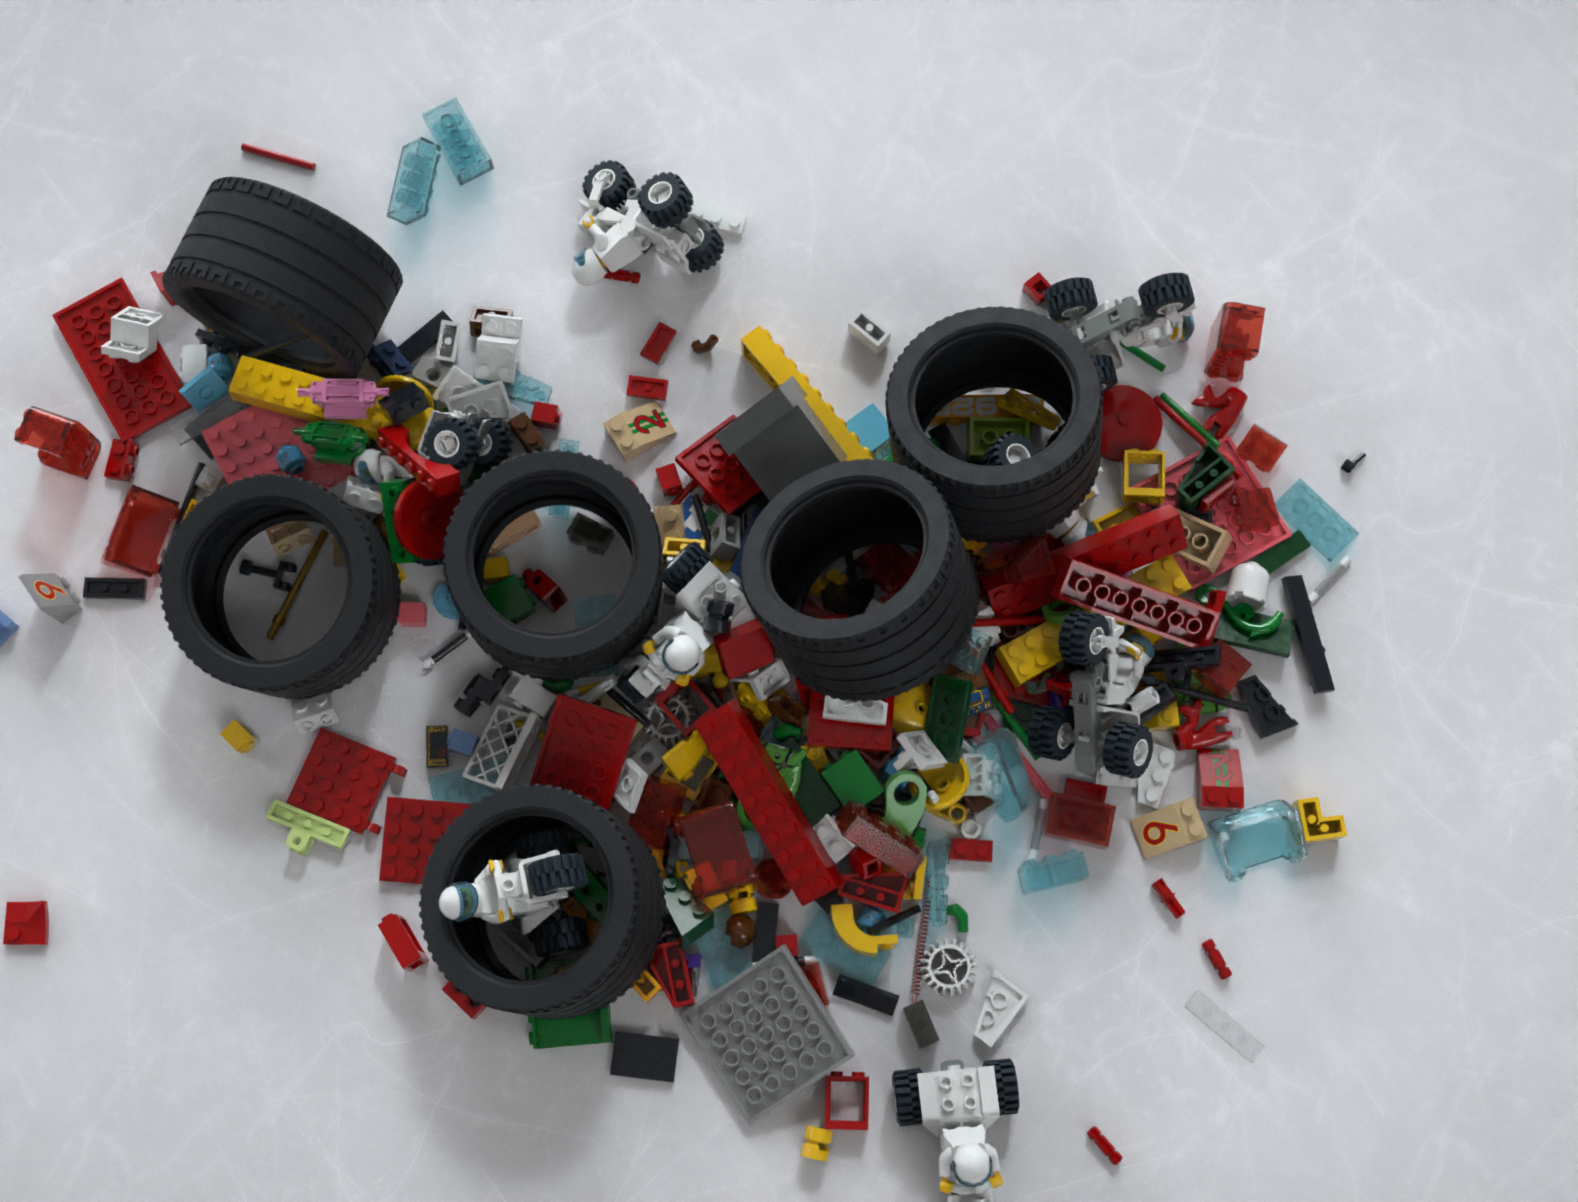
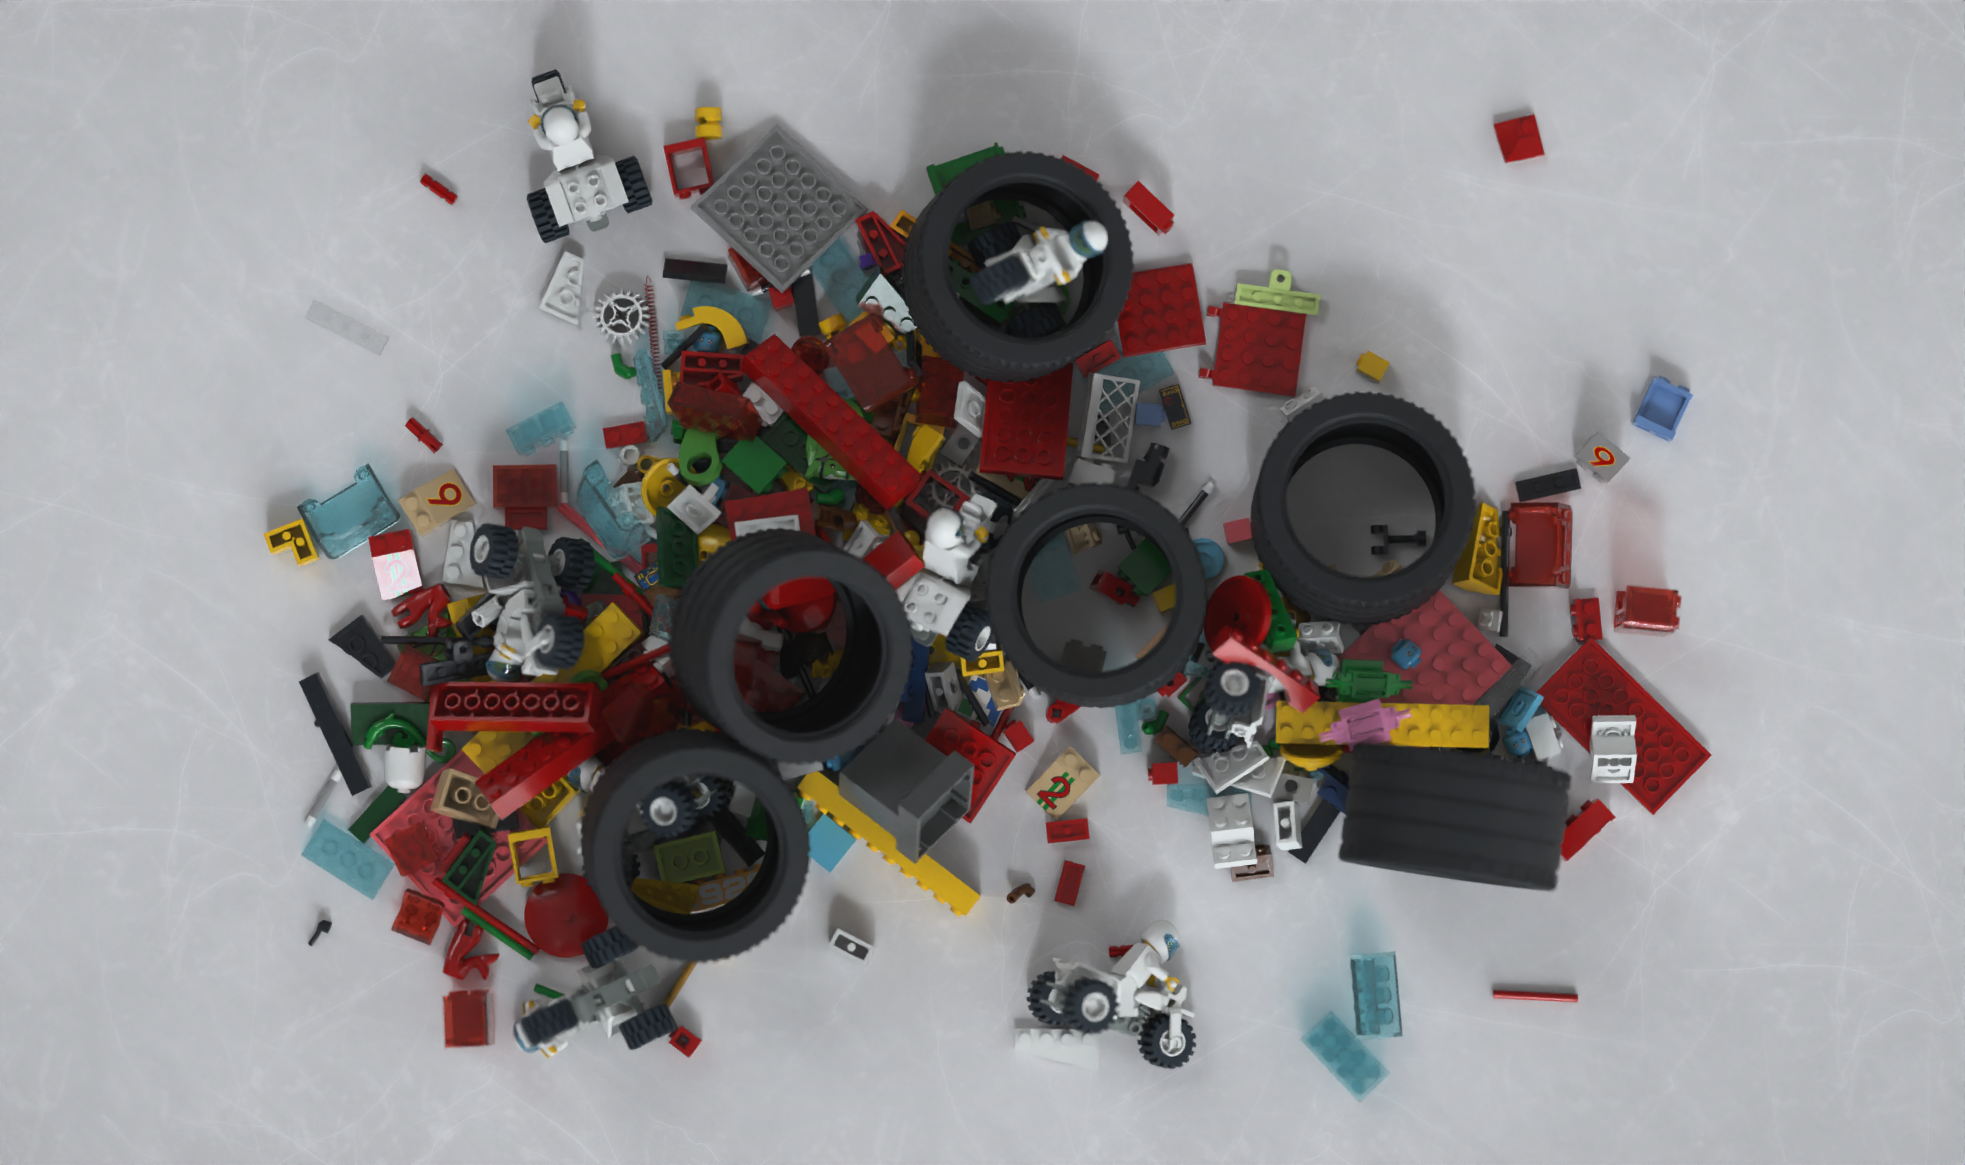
camera: 165 degrees right, 10 degrees up
(279, 619) = (1371, 494): pearl gold bar -> none
(403, 404) = (1302, 732): black brick -> none
(644, 1056) = (891, 163): black tile -> none
(718, 616) = (922, 584): black wheel -> none
(741, 930) = (829, 300): reddish brown hair -> none
(920, 1024) = (636, 255): clear smoke brick -> none
(1216, 959) = (366, 388): red axle -> none

